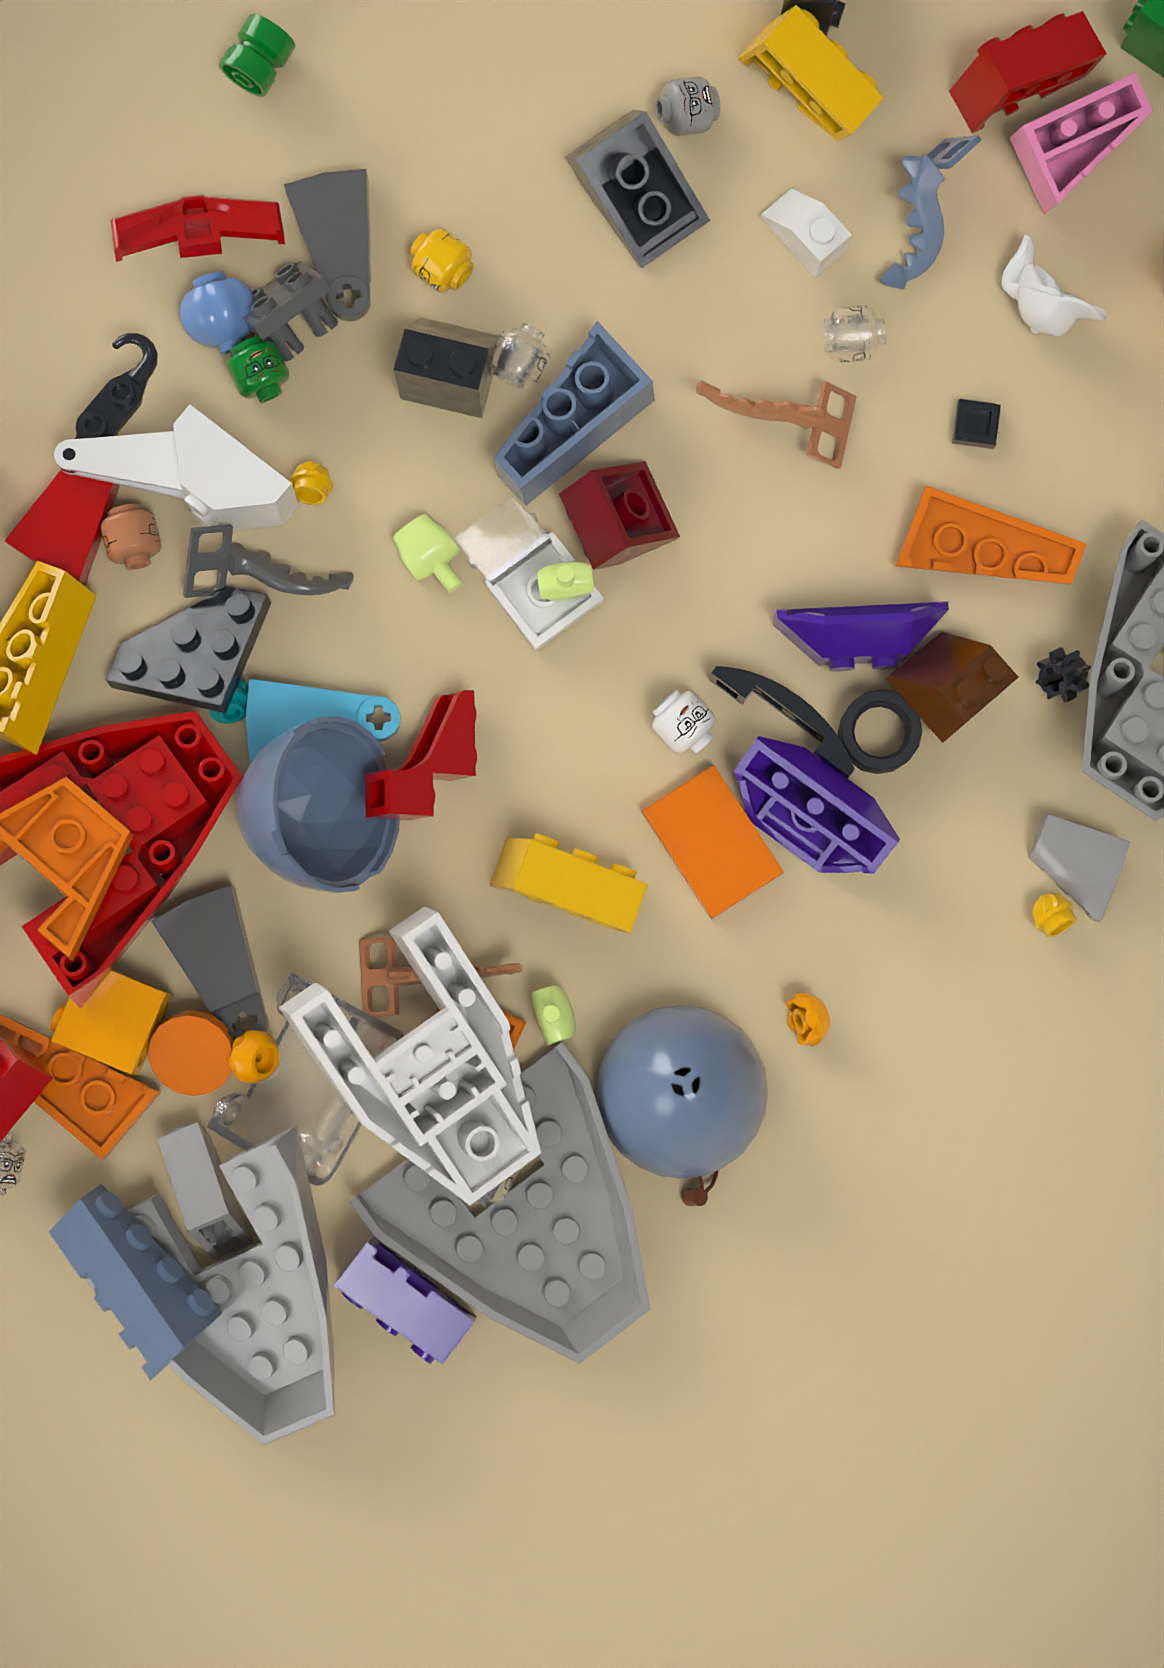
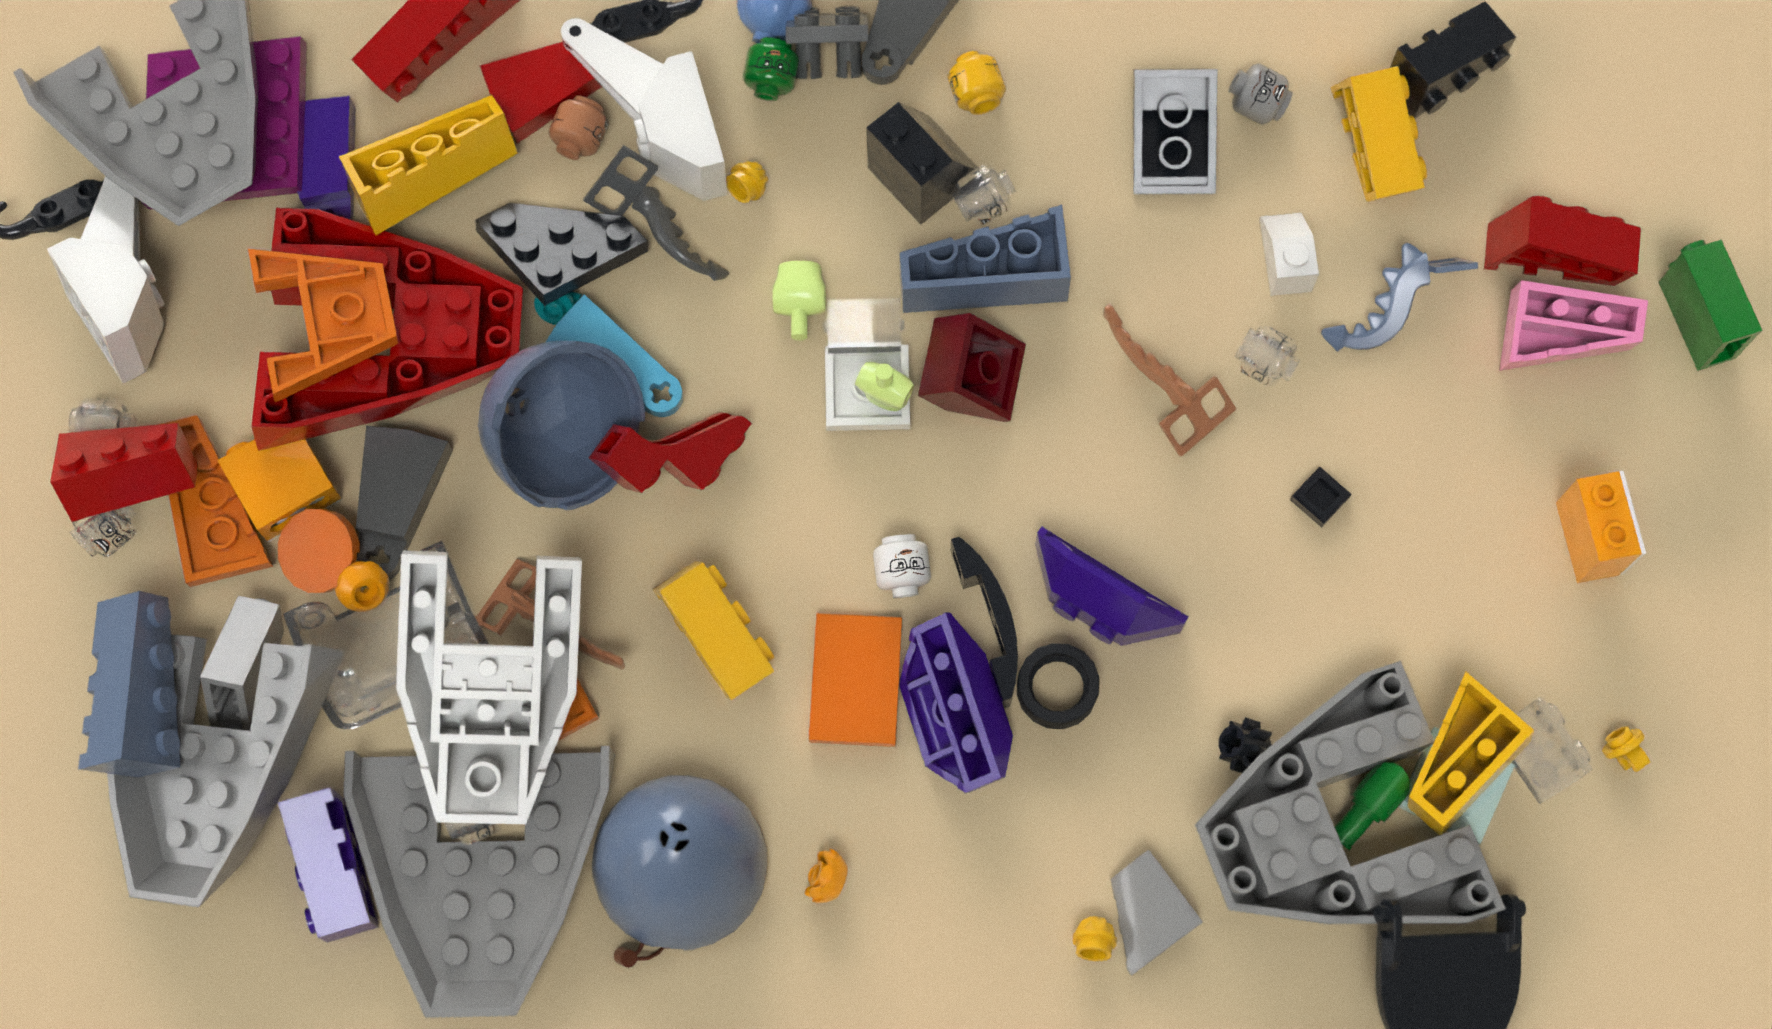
camera: 40 degrees right, 10 degrees down
(554, 1014) = (622, 722): yellowish green piece -> none
(951, 681) = (1145, 686): reddish brown slope -> none
(977, 540) = (1253, 590): orange wing -> none
(1039, 297) = (1446, 430): white hair -> none

